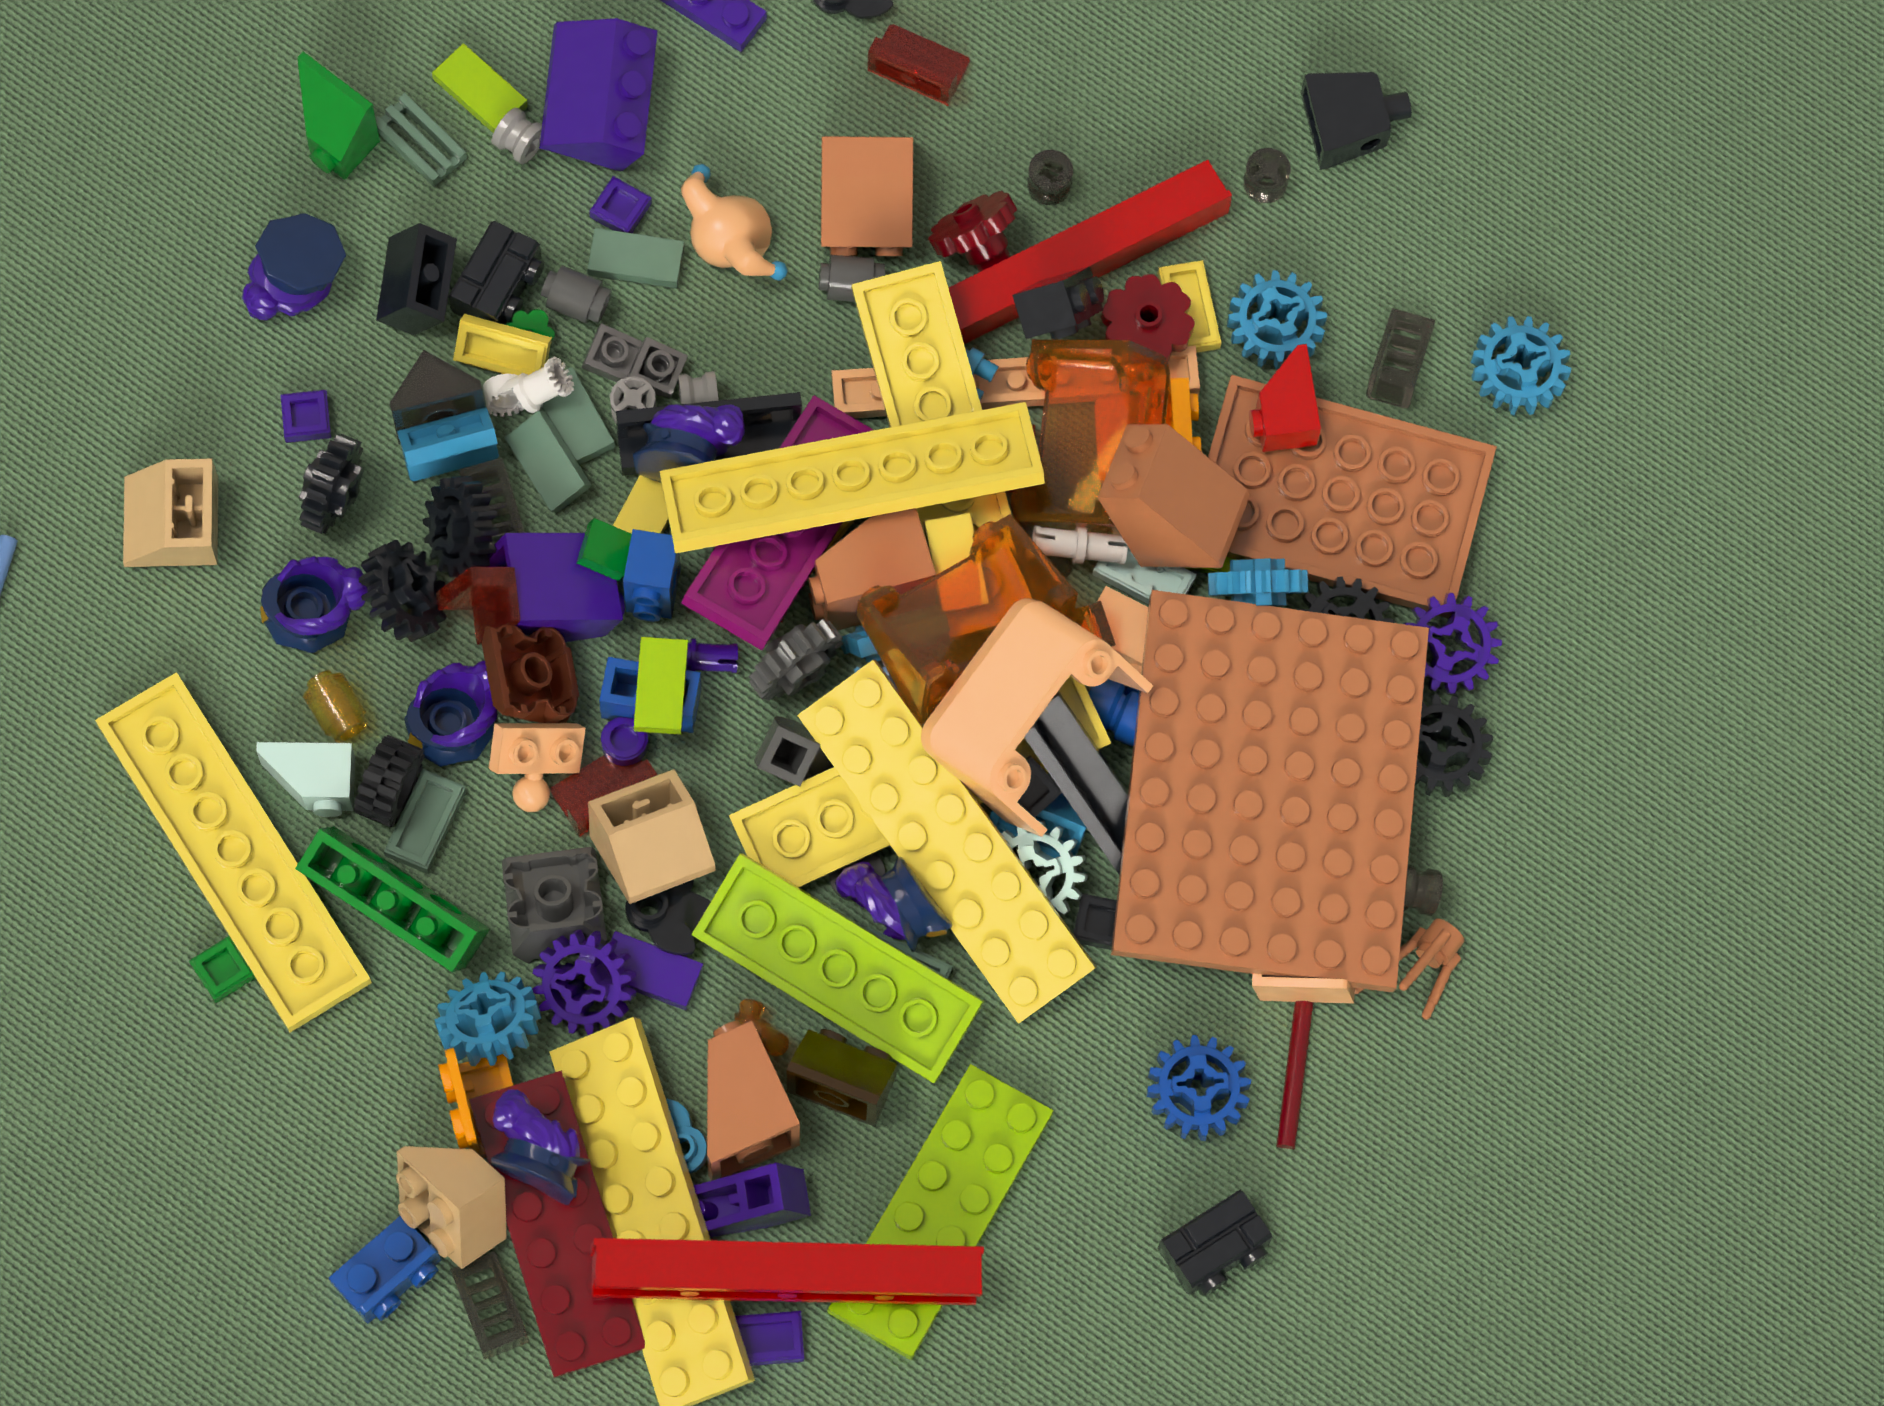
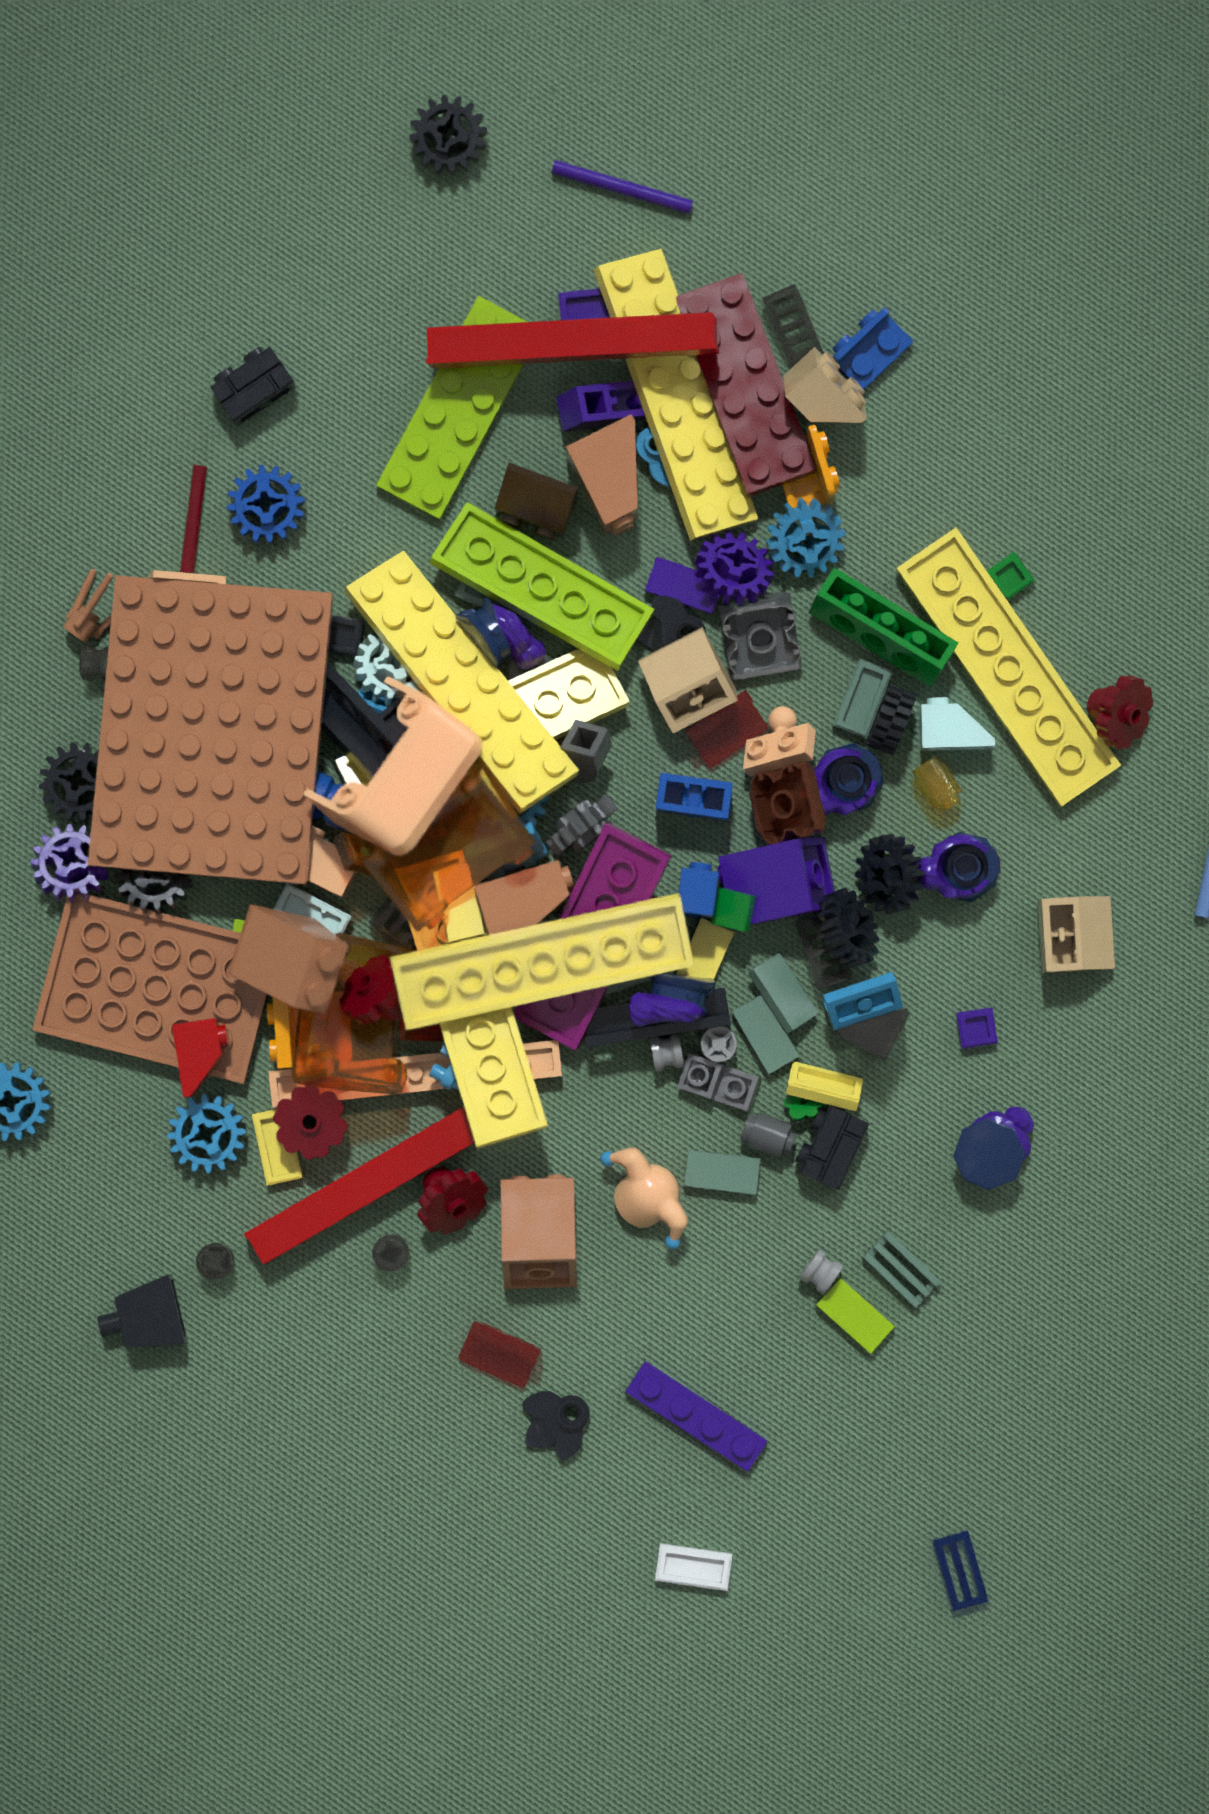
camera: 175 degrees left, 15 degrees up
(91, 784) = (1121, 711): none -> dark red plant
(331, 483) = (951, 959): black gear -> none
(337, 119) = (972, 1272): green slope -> none
(416, 279) = (895, 1138): black brick -> none
(486, 591) = (821, 866): clear red panel -> none
(528, 392) = (800, 1046): white connector -> none
(536, 1148) = (763, 418): piece -> none
(599, 91) = (758, 1308): dark purple slope -> none
(620, 206) = (736, 1216): dark purple tile -> none
(621, 743) = (712, 764): dark purple tile -> none
(660, 685) = (685, 793): lime tile -> none
(712, 657) = (656, 835): dark purple pin -> none
(773, 1040) = (600, 542): clear orange arm -> none
(844, 271) = (548, 1157): dark grey brick -> none
(1060, 304) = (381, 1120): black brick -> none
(1071, 465) = (372, 992): none -> dark red plant
(1080, 544) = (366, 927): white pin -> none
(1258, 582) = (220, 899): dark azure gear -> none
(1394, 384) = (118, 1080): clear smoke slope -> none

